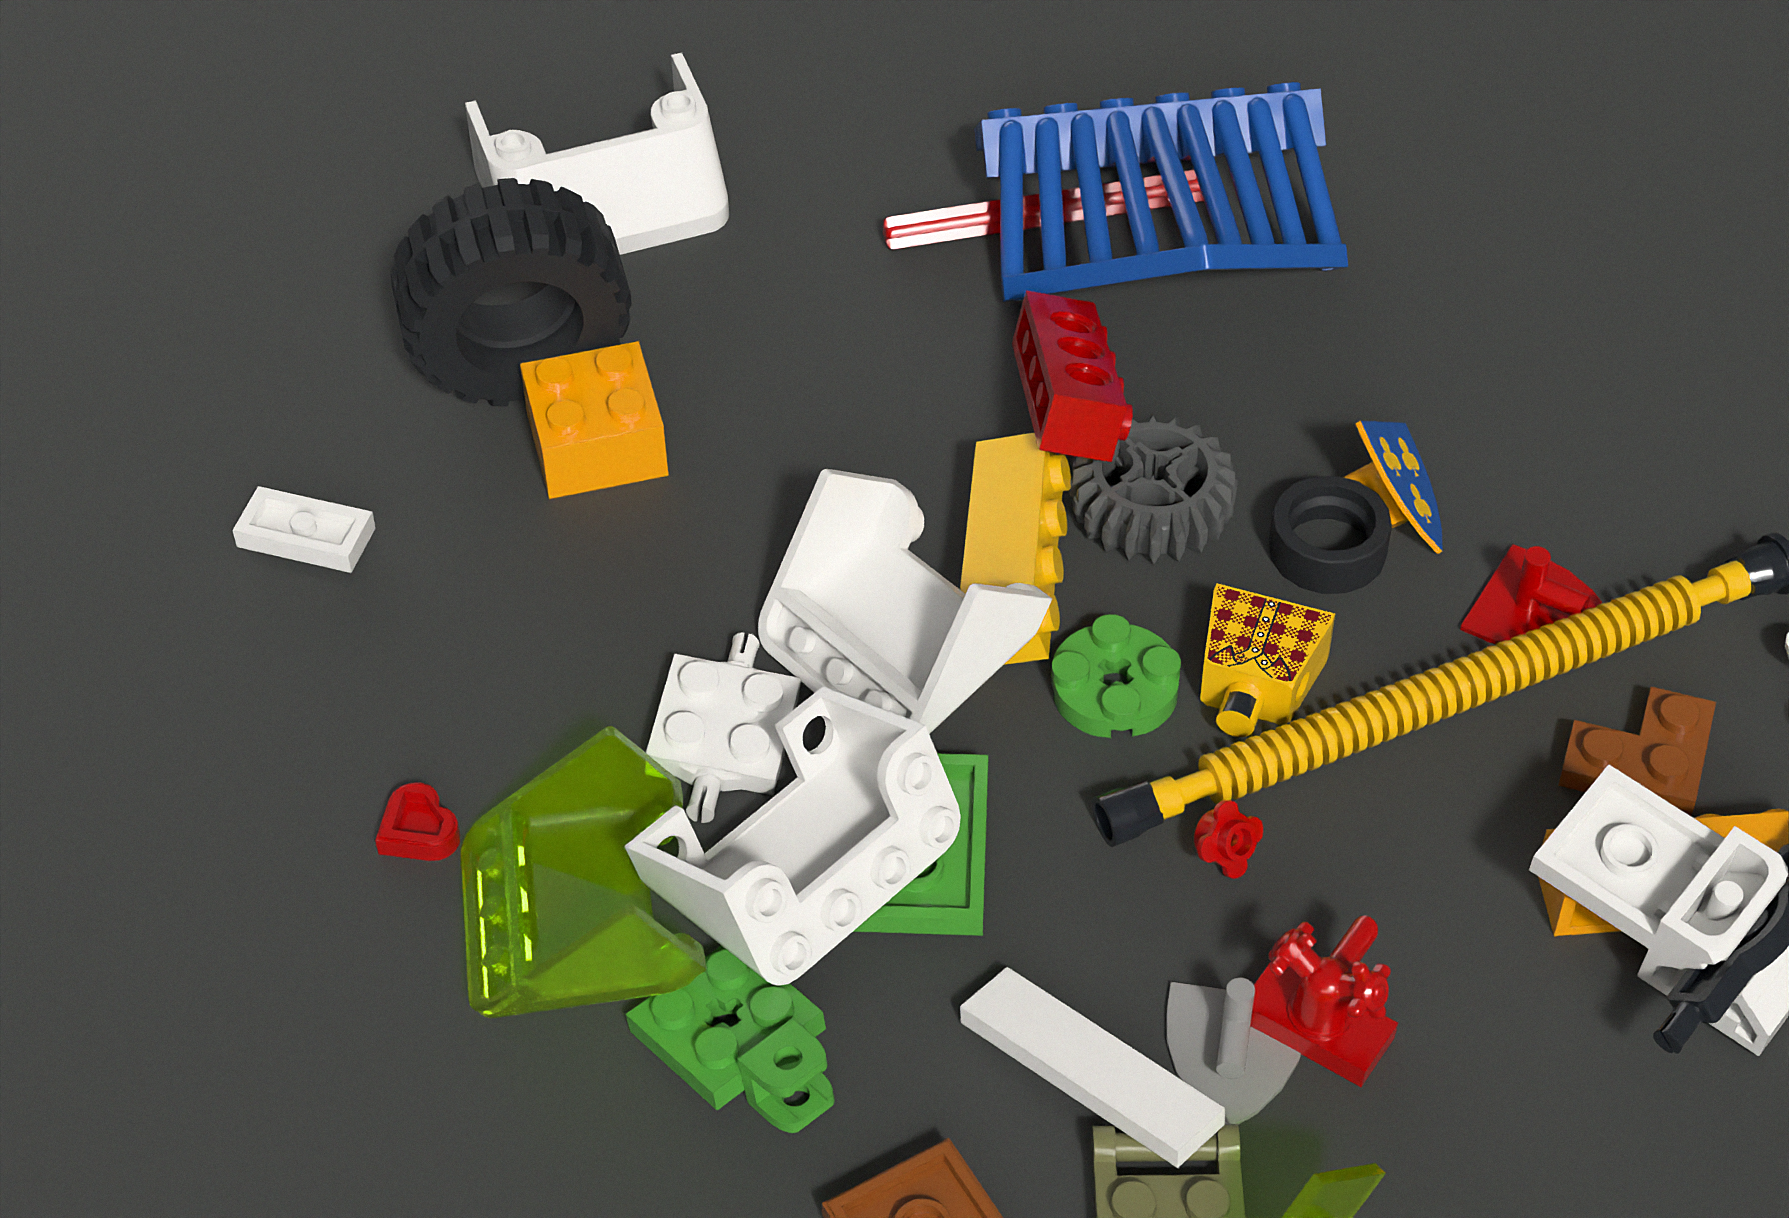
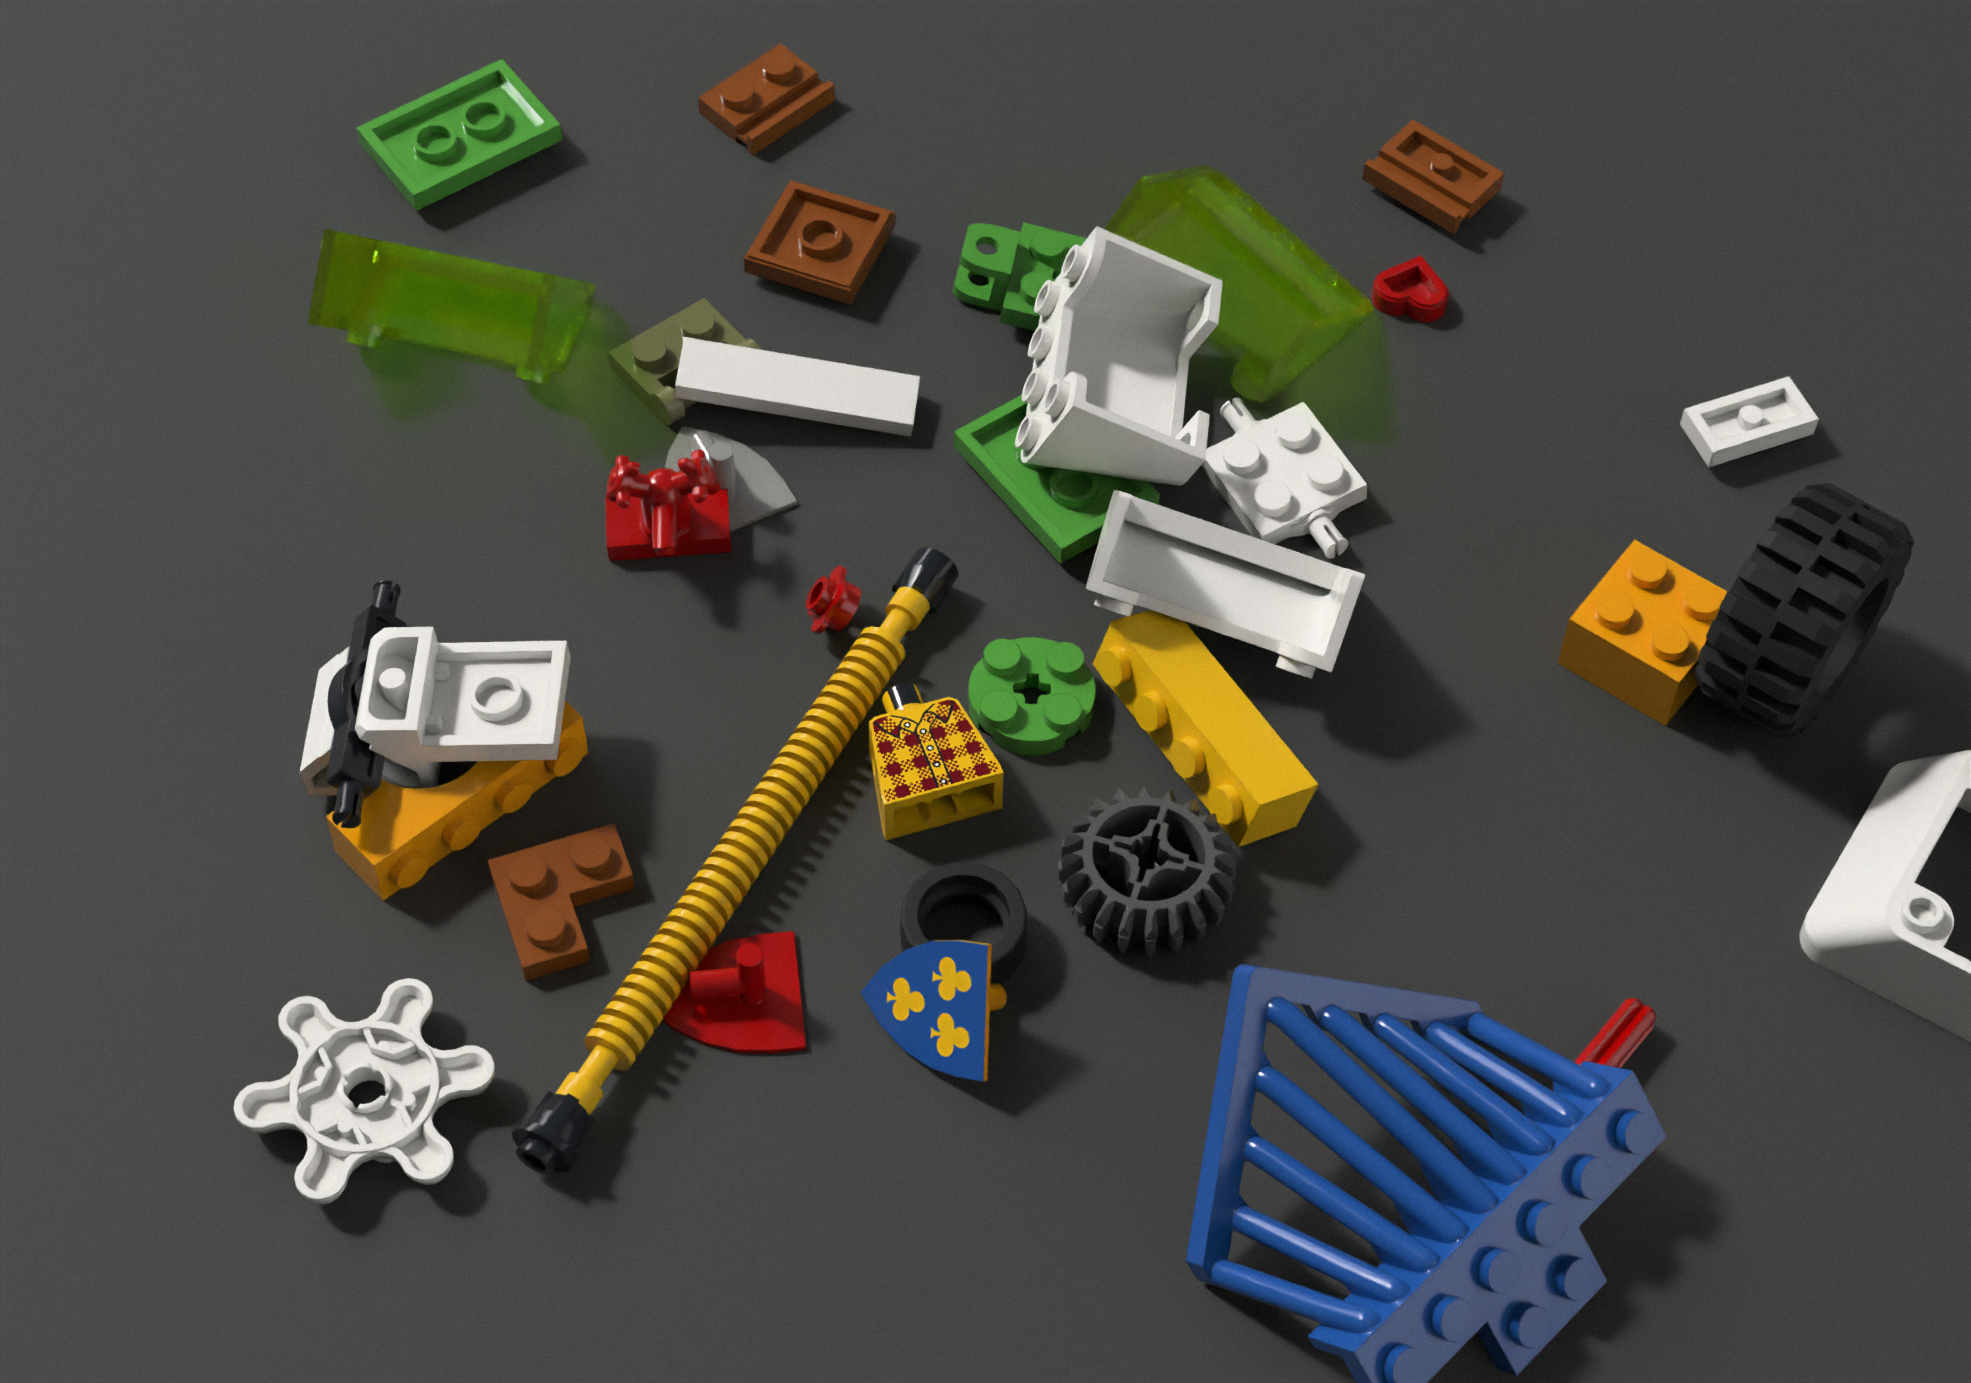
camera: 140 degrees right, 5 degrees up
(267, 909) = (1433, 176): none -> dark orange plate
(1070, 377) = (1247, 787): red brick -> none

